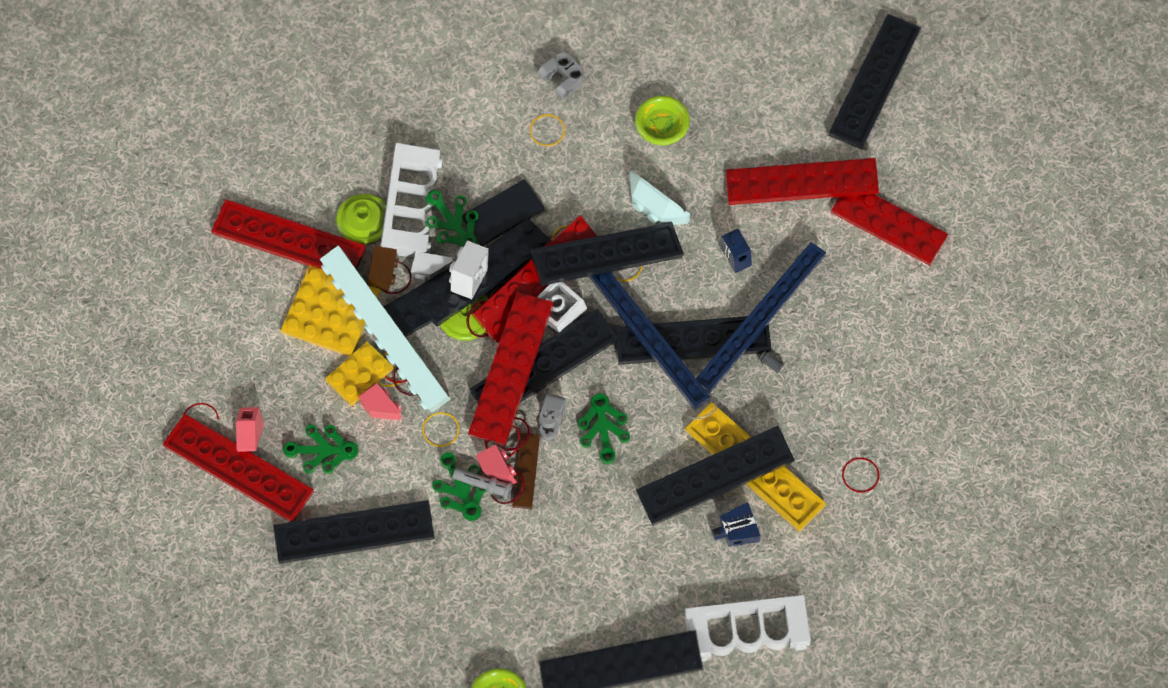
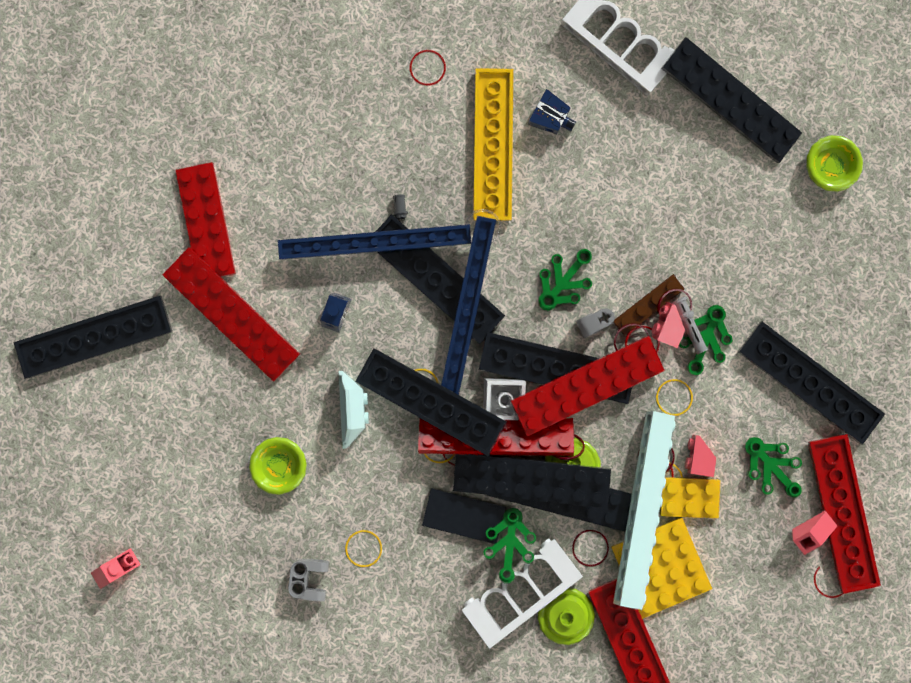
camera: 135 degrees left, 20 degrees up
(381, 268) = (596, 560): reddish brown brick -> none
(429, 266) = (561, 527): white slope -> none
(468, 269) = (550, 484): white brick -> none
(715, 475) = (529, 162): black plate -> none

